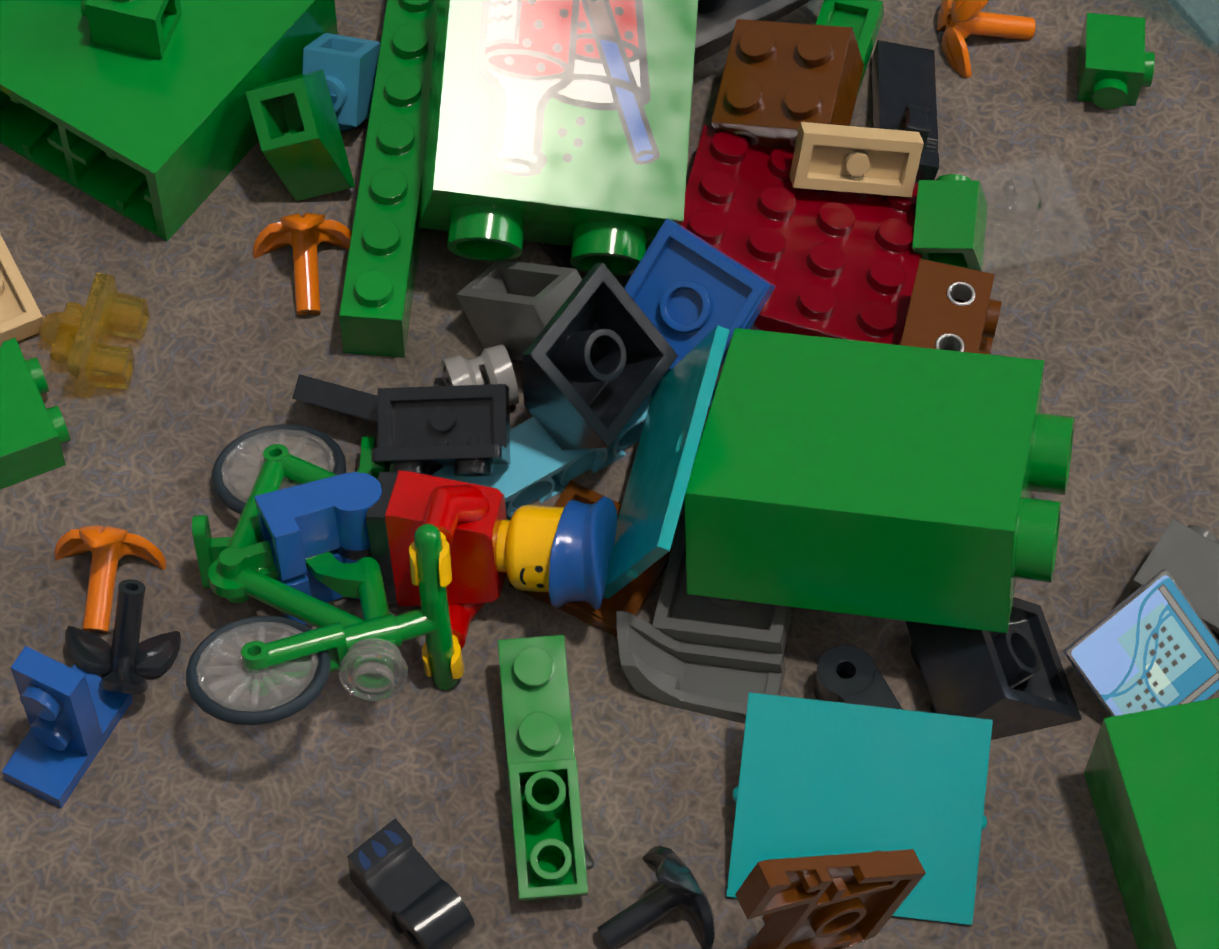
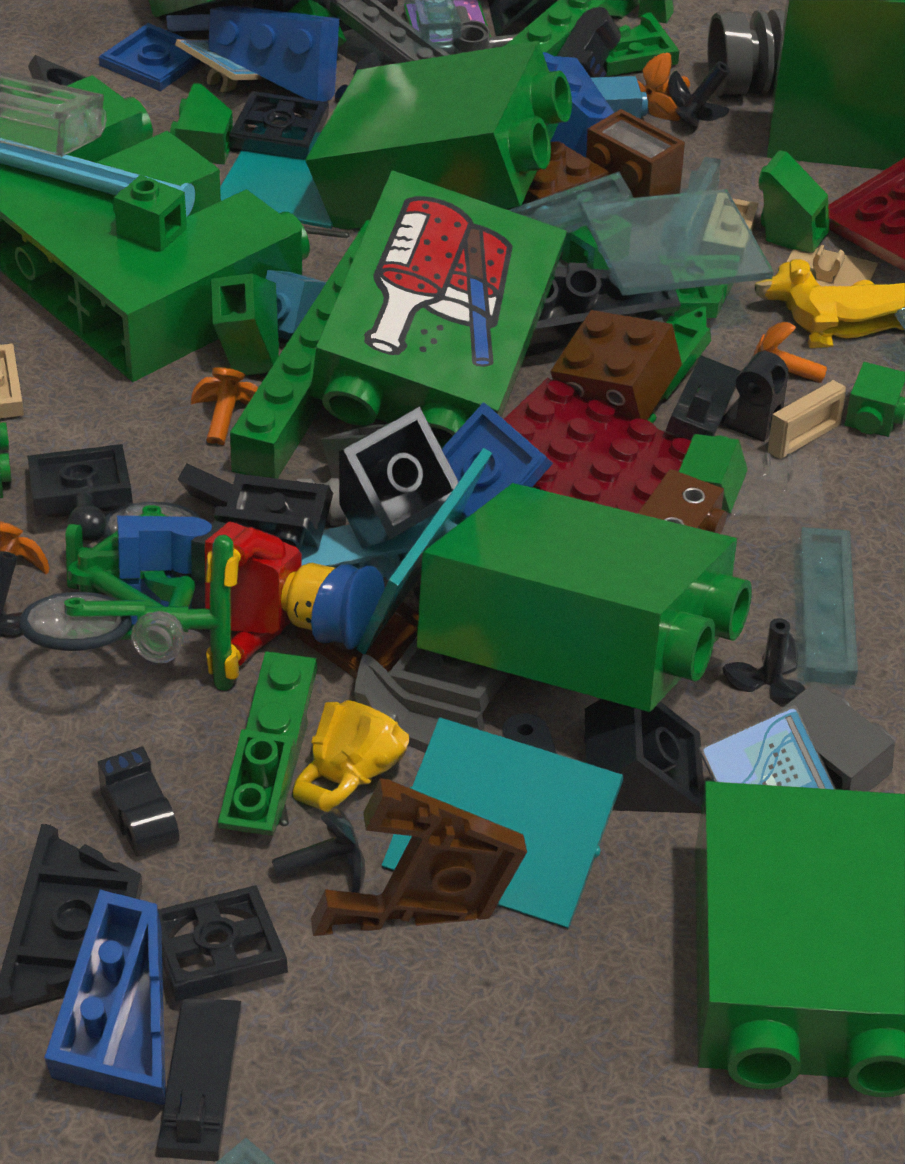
camera: 15 degrees right, 15 degrees down
(83, 336) = (49, 420): clear yellow hips -> none
(166, 428) = (81, 486): none -> black plate
(644, 751) = (349, 749): none -> yellow piece
(856, 159) = (649, 410): tan plate -> none
(973, 94) = (761, 393): none -> black leg
(1037, 112) = (806, 419): none -> tan tile
(1103, 478) = (778, 660): none -> black plant
(1140, 386) = (827, 606): none -> clear light blue plate

